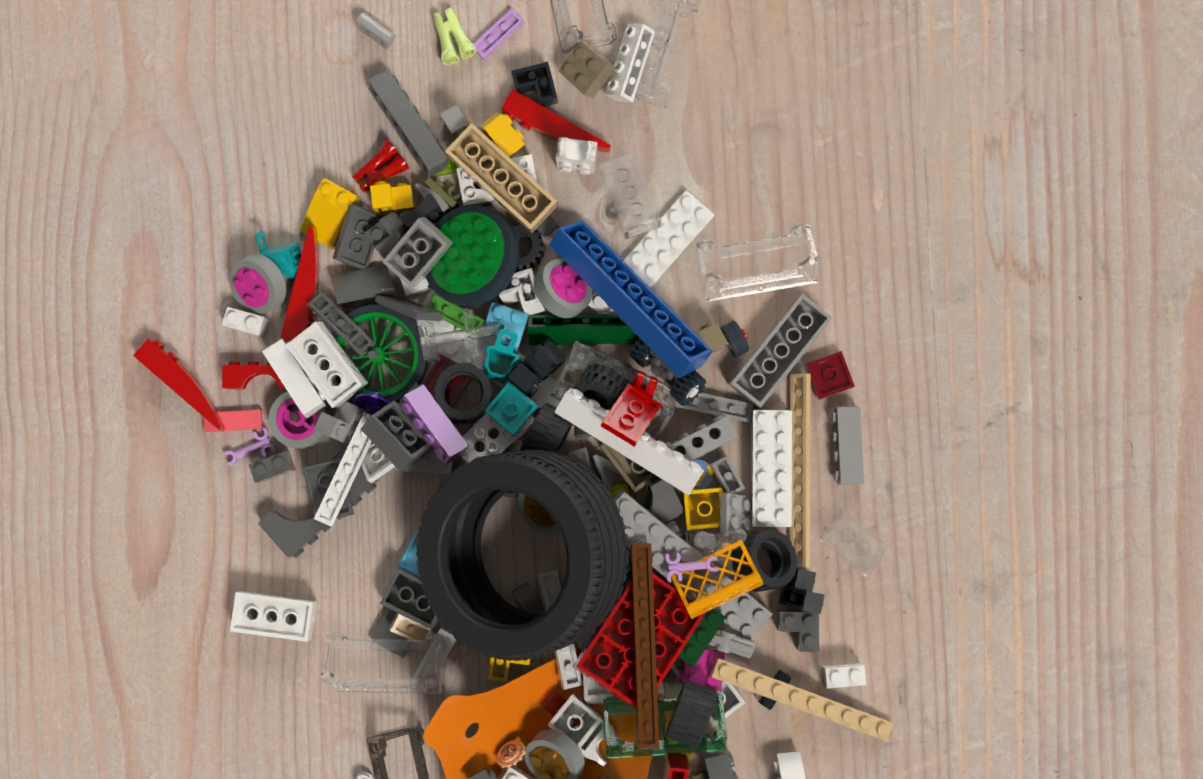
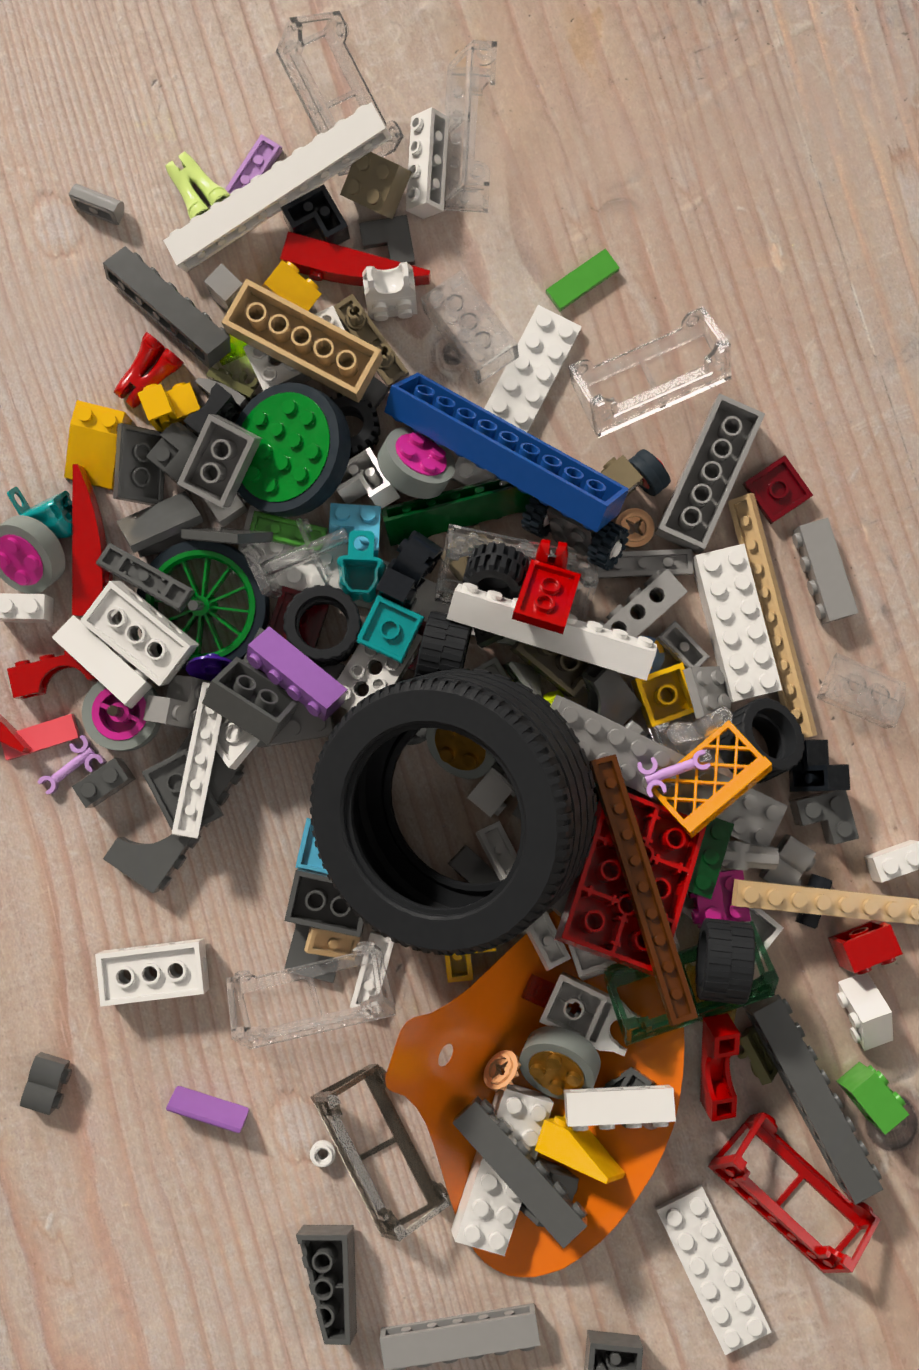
camera: 15 degrees left, 0 degrees up
(174, 677) = (45, 1083): none -> dark grey brick
(288, 727) = (208, 1109): none -> medium lavender slope
(512, 56) = (280, 185): none -> white brick
(553, 184) = (360, 325): none -> dark tan plate
(554, 549) = (491, 794): none -> white brick
(590, 107) = (389, 233): none -> dark grey tile
(724, 378) = (646, 526): none -> light nougat gear
(725, 179) = (582, 280): none -> bright green tile
(764, 656) = (793, 861): none -> light grey brick
(803, 732) = (865, 946): none -> red brick

